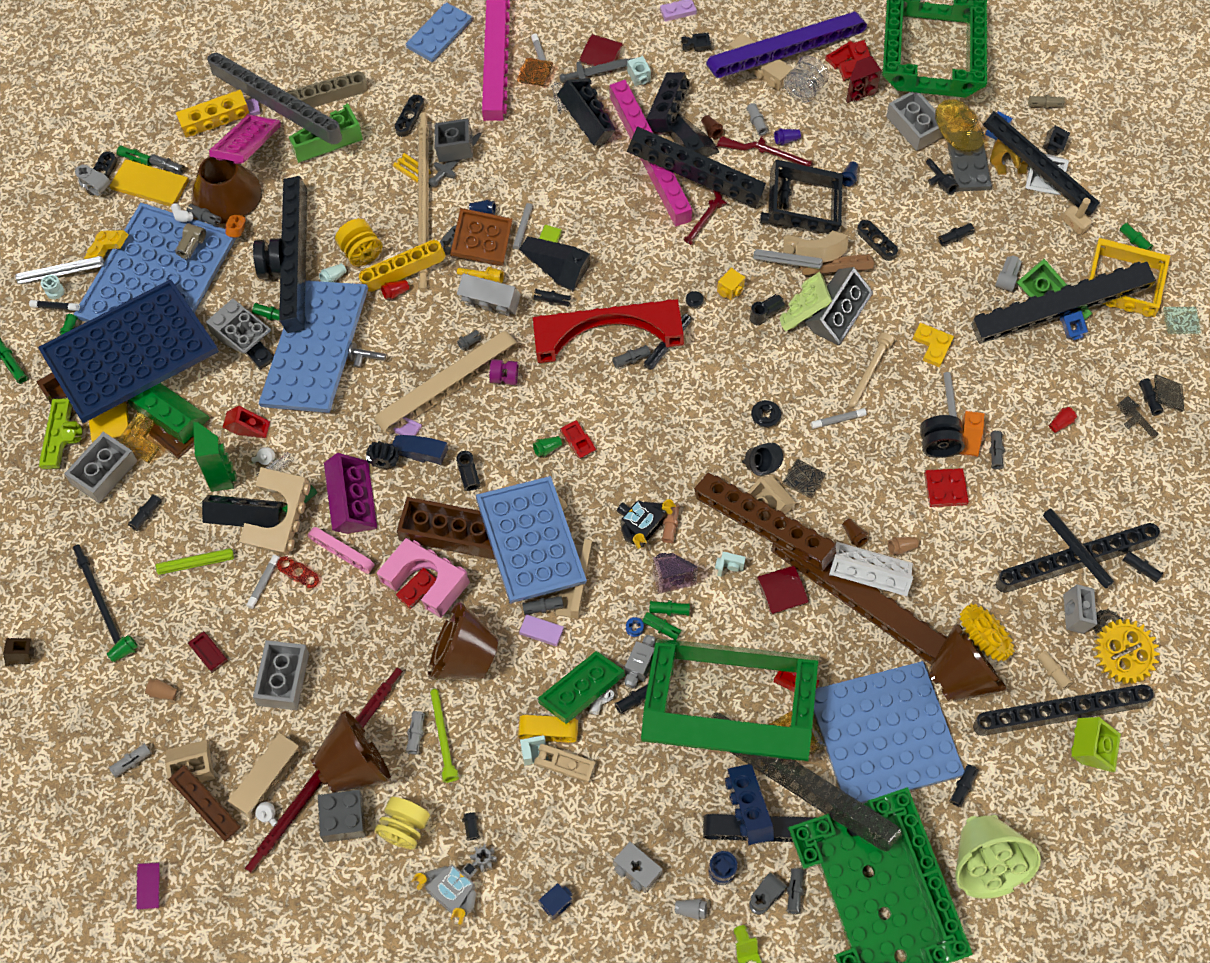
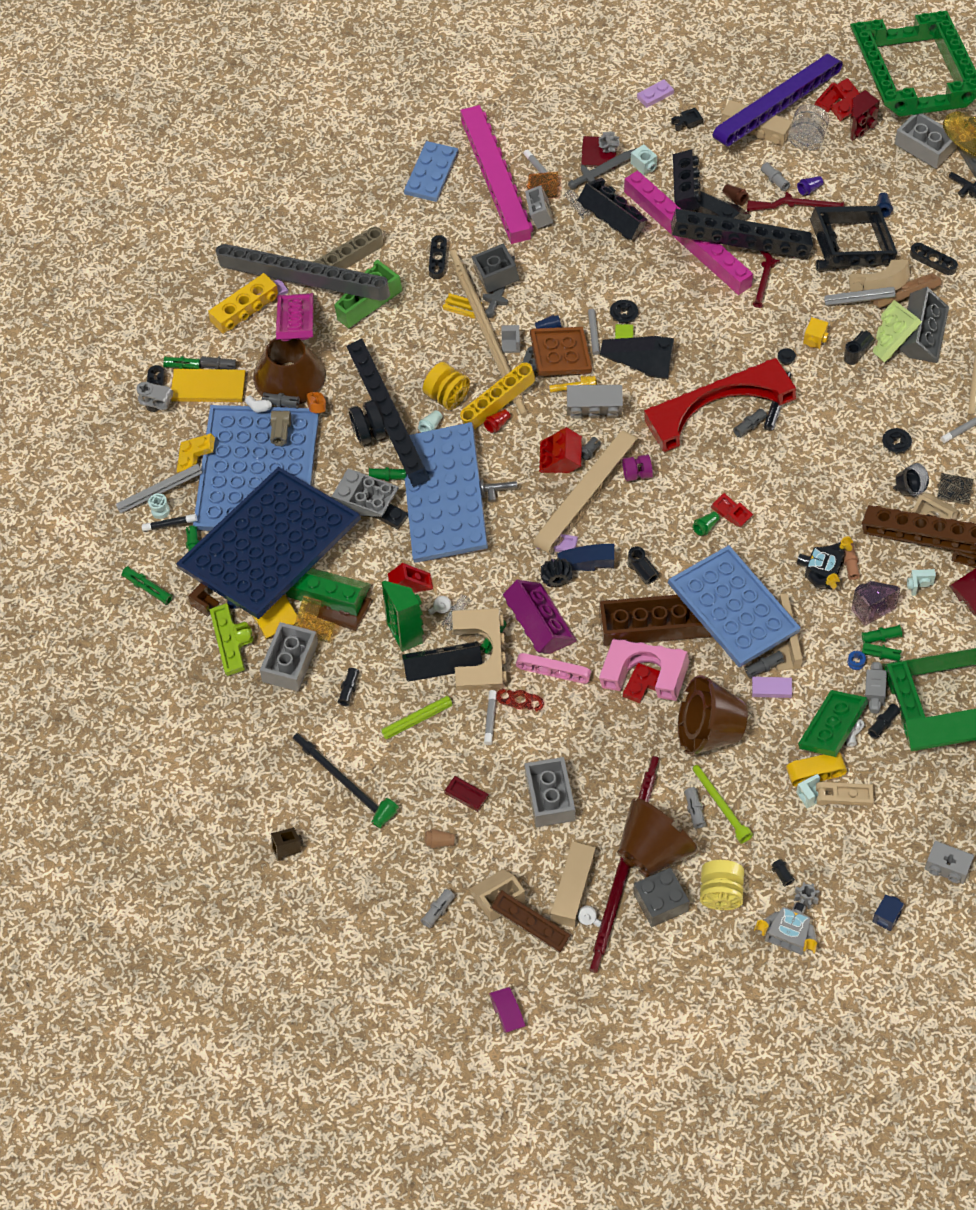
camera: 15 degrees left, 5 degrees down
(439, 336) = (560, 452): none -> red slope
(442, 212) = (510, 339): none -> light grey panel
(520, 91) = (539, 206): none -> light grey brick
(552, 297) = (651, 389): black pin -> none
(561, 208) = (624, 305): none -> black gear
(610, 45) = (608, 141): none -> light grey gear

